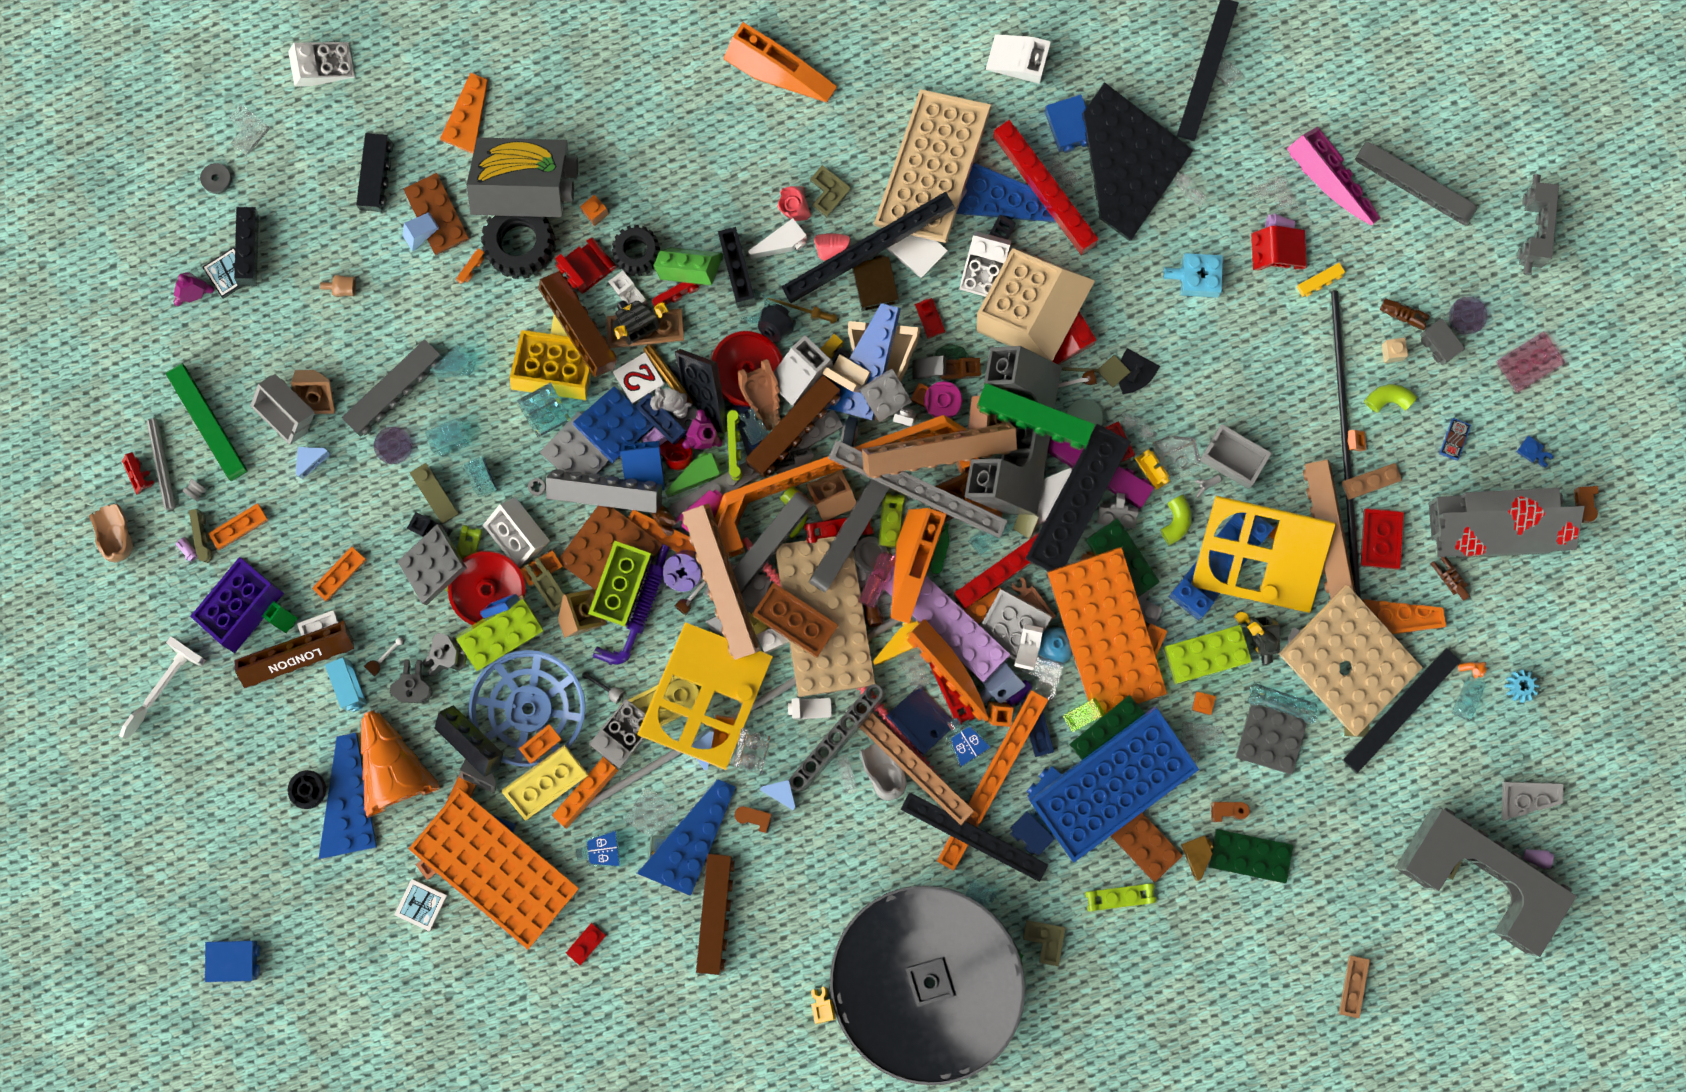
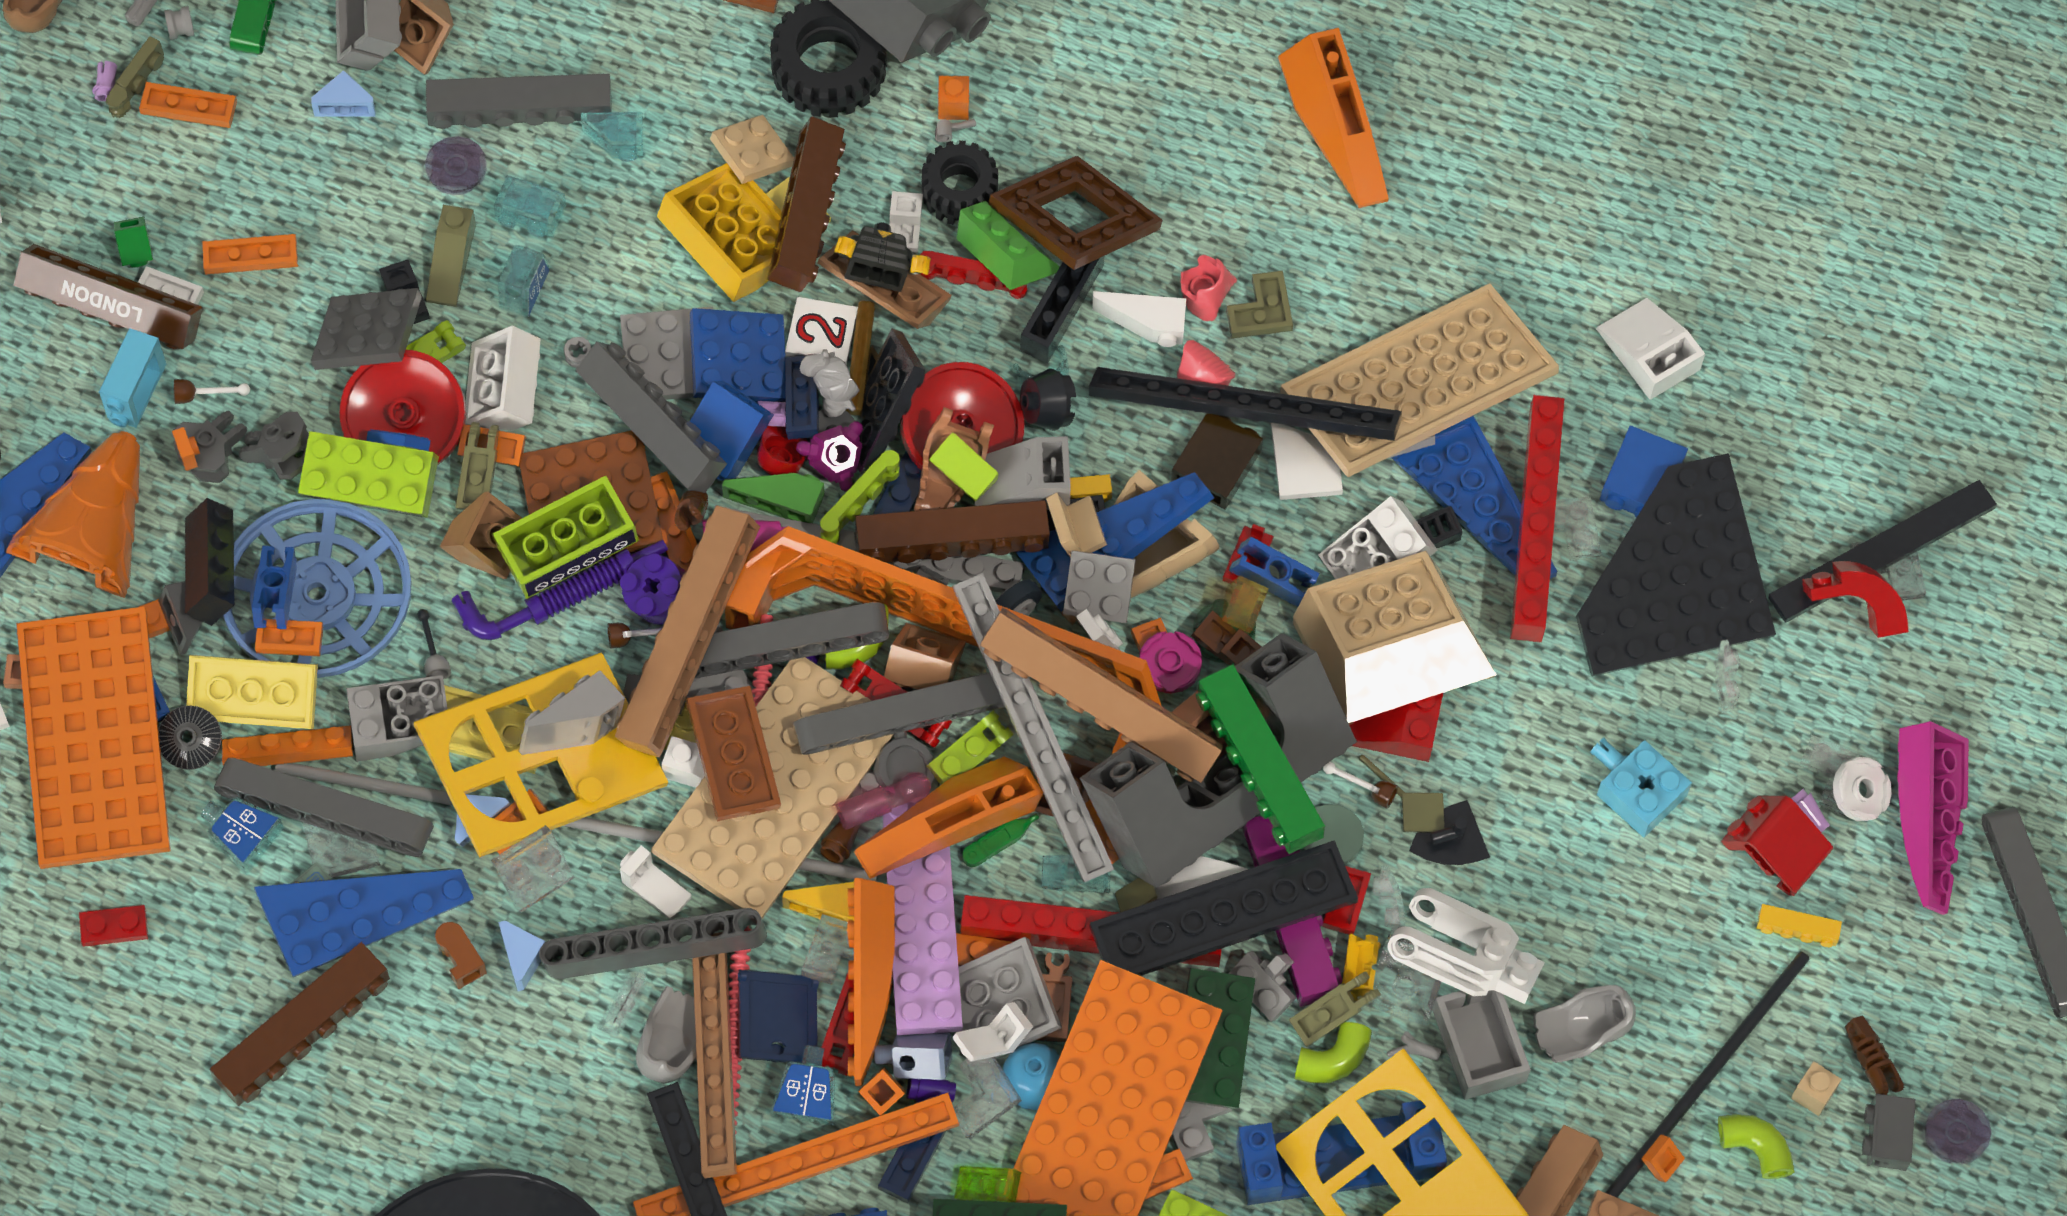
camera: 35 degrees right, 15 degrees down
(236, 605) = (98, 187): dark purple slope -> none
(407, 697) = (187, 448): none -> orange plate
(475, 260) = (731, 43): orange plate -> none
(506, 724) = (274, 587): none -> blue piece
(524, 317) = (752, 149): none -> tan plate
(534, 818) = (205, 740): none -> dish
(544, 410) = (670, 266): clear light blue brick -> none
(585, 265) = (881, 153): red piece -> none
(603, 230) = (944, 129): none -> light grey hand
(631, 807) = (324, 807): none -> dark grey beam
(712, 663) = (574, 717): none -> light grey slope
(727, 240) = (1126, 222): none -> reddish brown plate
(755, 428) = (903, 497): clear light blue plate -> none
(771, 391) = (964, 467): none -> lime slope
(815, 313) = (1110, 433): pearl gold sword -> none
(929, 367) = (1190, 609): dark grey slope -> none
(945, 320) = (1285, 565): none -> blue piece
(952, 345) = (1243, 603): none -> clear yellow slope
(1159, 500) = (1331, 1010): none -> olive hinge
(1211, 95) = (1885, 607): none -> red arch
(1214, 416) = (1492, 967): none -> white plate
(1271, 408) = (1584, 1022): none -> light grey hair
(1287, 195) = (1847, 789): none -> white tile

